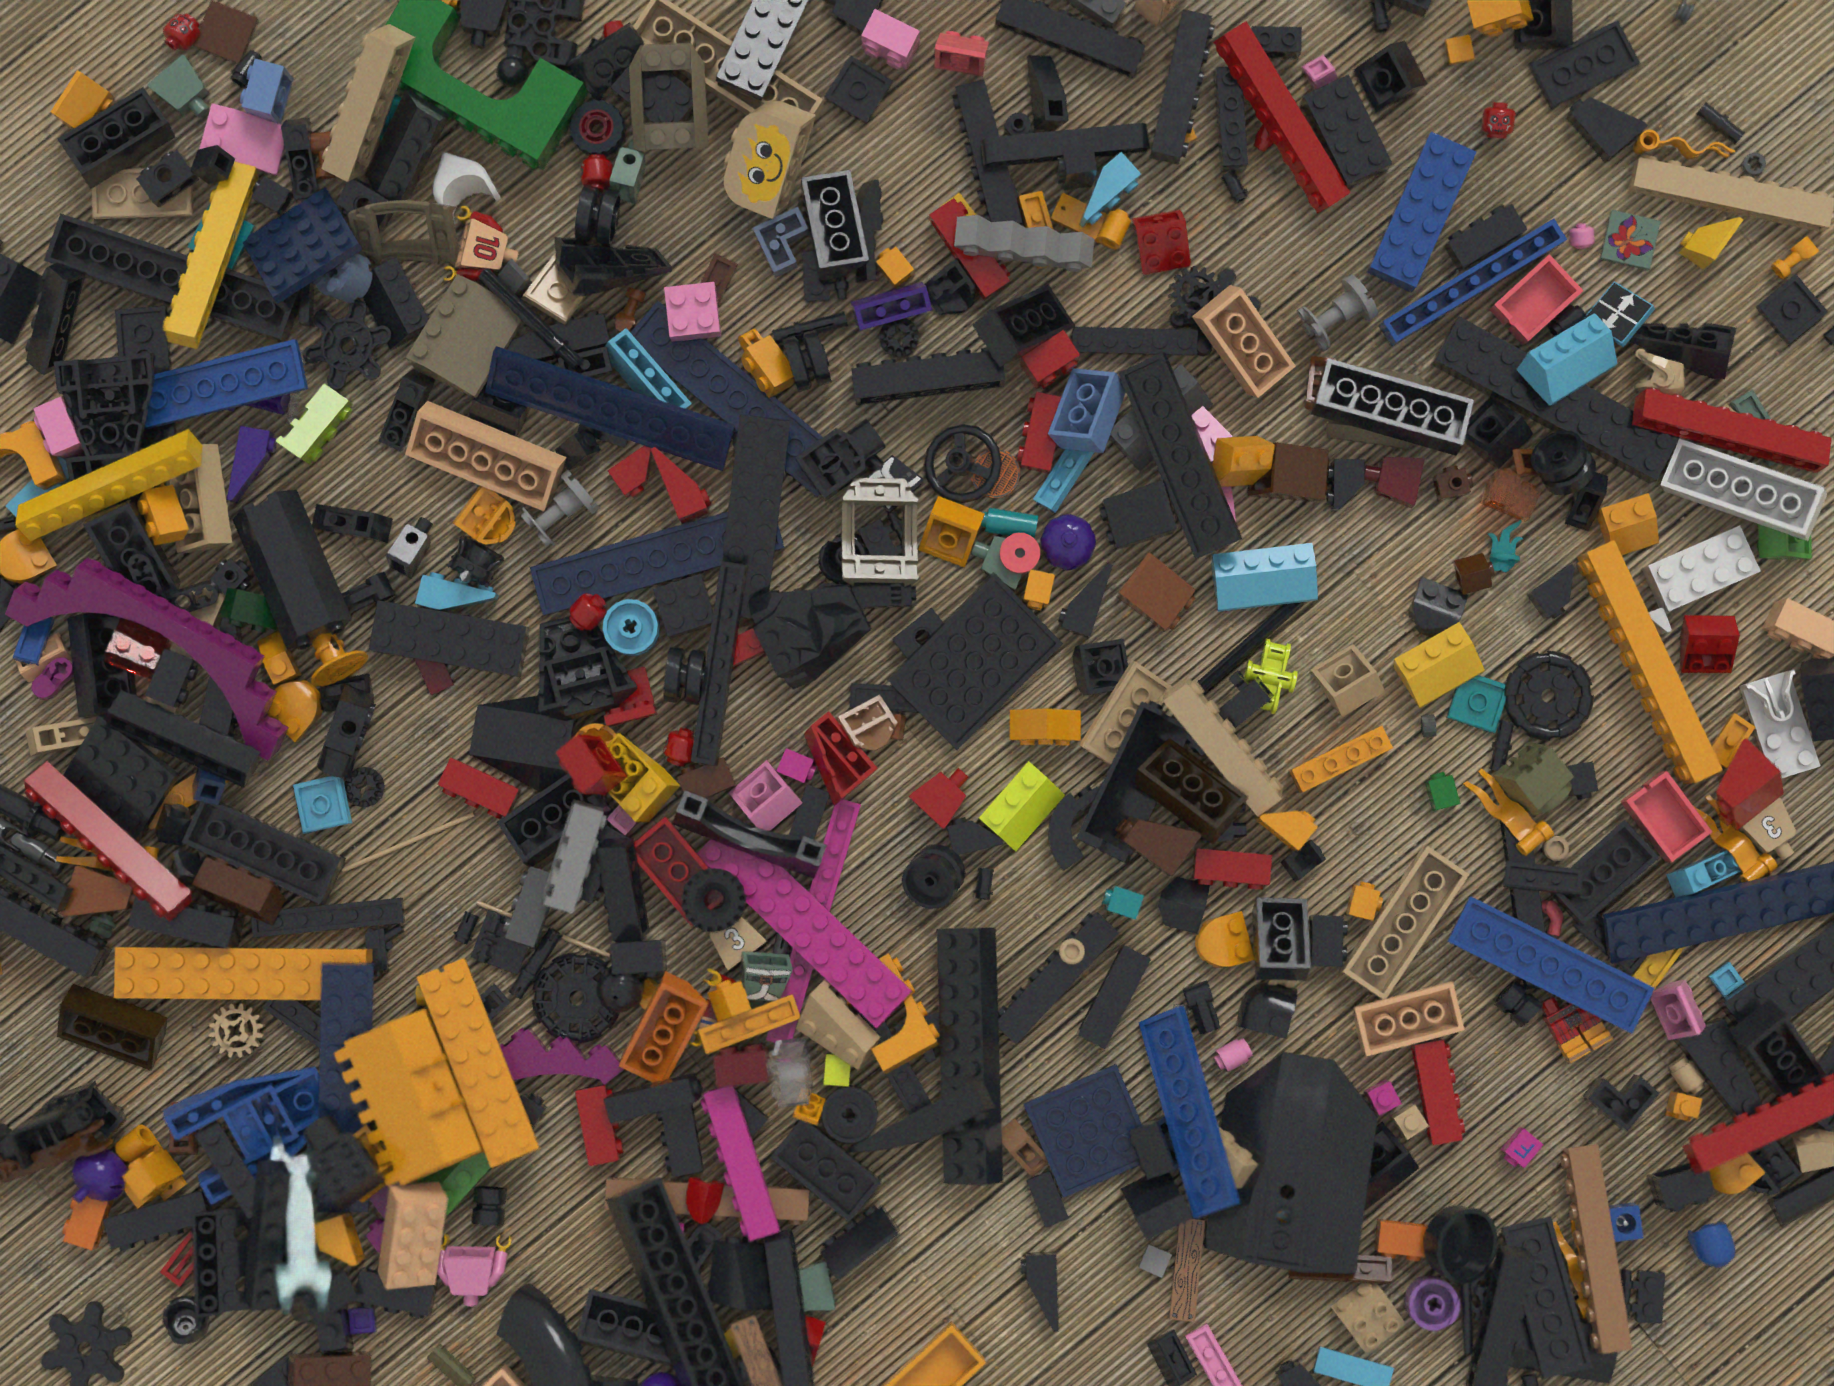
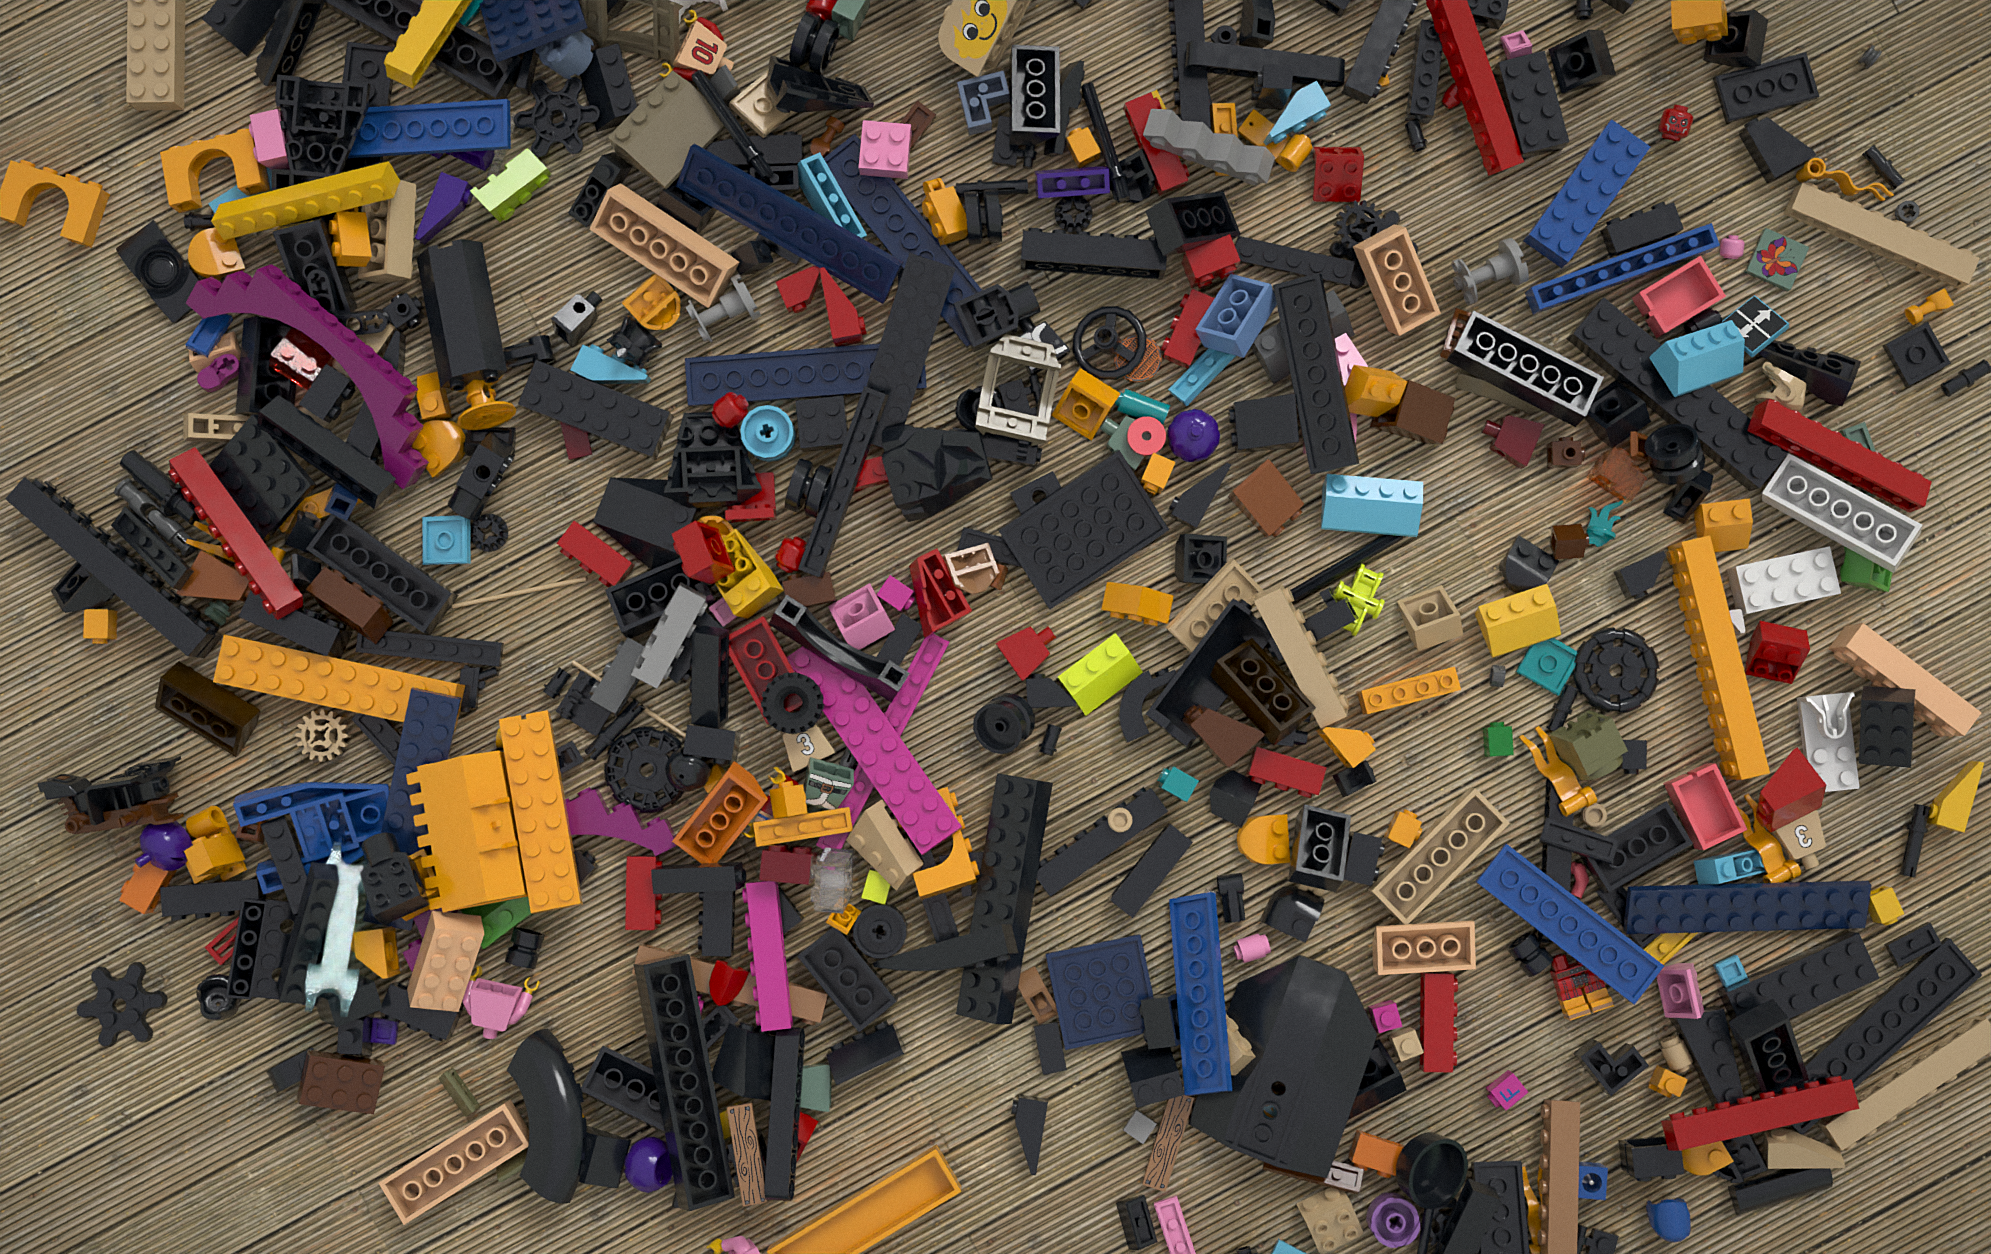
camera: 10 degrees right, 0 degrees up
(104, 1109) = (181, 783): black slope -> none
(247, 608) = (412, 342): dark green brick -> none
(352, 523) = (528, 284): black slope -> none
(933, 286) = (1107, 148): none -> black axle
(1346, 480) = (1466, 428): black slope -> none
(1459, 49) = (1652, 50): light orange tile -> none
(1708, 241) = (1851, 275): yellow slope -> none
(1730, 738) = (1781, 745): light orange plate -> none

